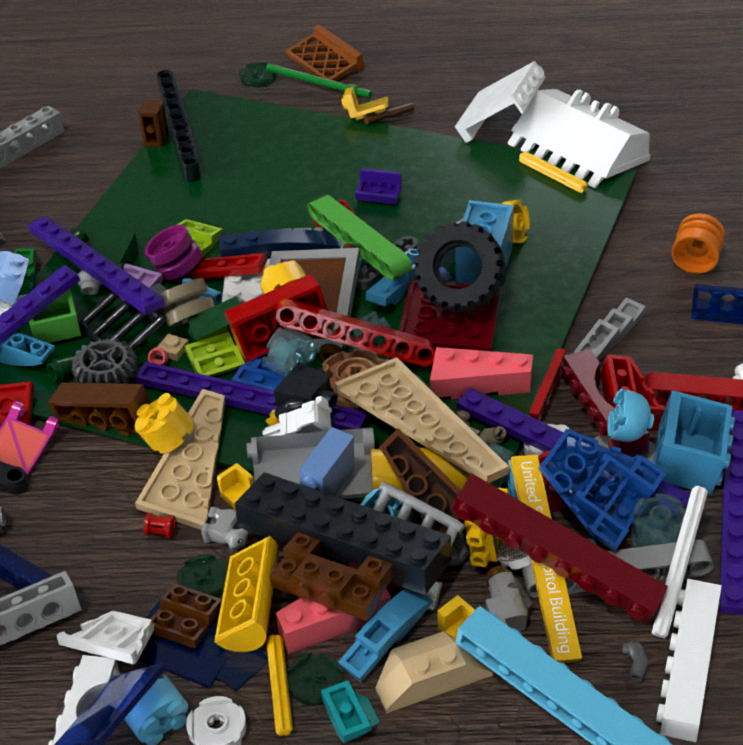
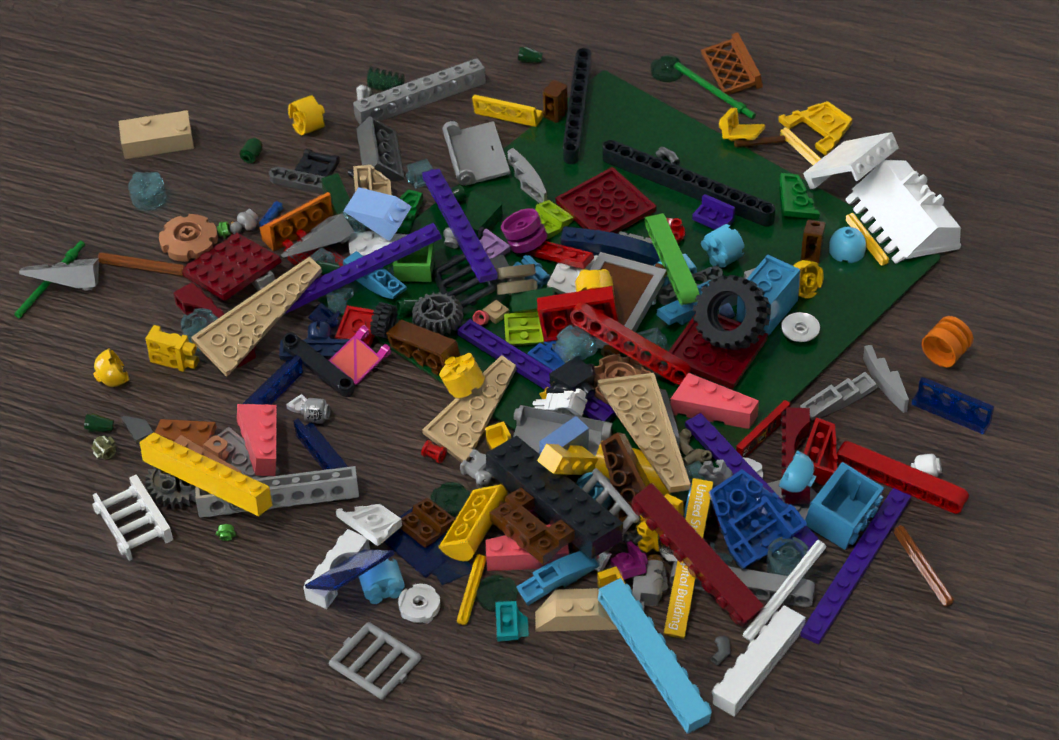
camera: 20 degrees right, 5 degrees up
(19, 232) = (415, 172): none -> clear light blue brick
(38, 388) = (383, 319): none -> black tyre
(79, 195) = (473, 152): none -> light grey door
(100, 147) = (507, 110): none -> yellow fence
(103, 94) = (529, 55): none -> dark green cone
(151, 200) = (527, 175): none -> light grey slope
(252, 205) = (606, 203): none -> dark red plate
(301, 146) = (669, 154): none -> dark grey arm
(331, 164) = (687, 182): none -> black beam
(342, 482) = (570, 462): none -> yellow arch
(407, 212) = (723, 246): none -> medium azure brick
(434, 109) = (800, 146): none -> yellow axle
(443, 79) = (824, 119): none -> yellow wing
(456, 154) = (795, 199): none -> green wing
(473, 585) = (630, 563): none -> magenta bracket
(500, 179) = (813, 234): none -> reddish brown torso
(531, 446) = (713, 474): none -> light grey animal
(532, 270) = (800, 327): none -> white dish
(536, 180) = (847, 244): none -> medium azure cylinder
(658, 301) = (887, 381): none -> light grey slope

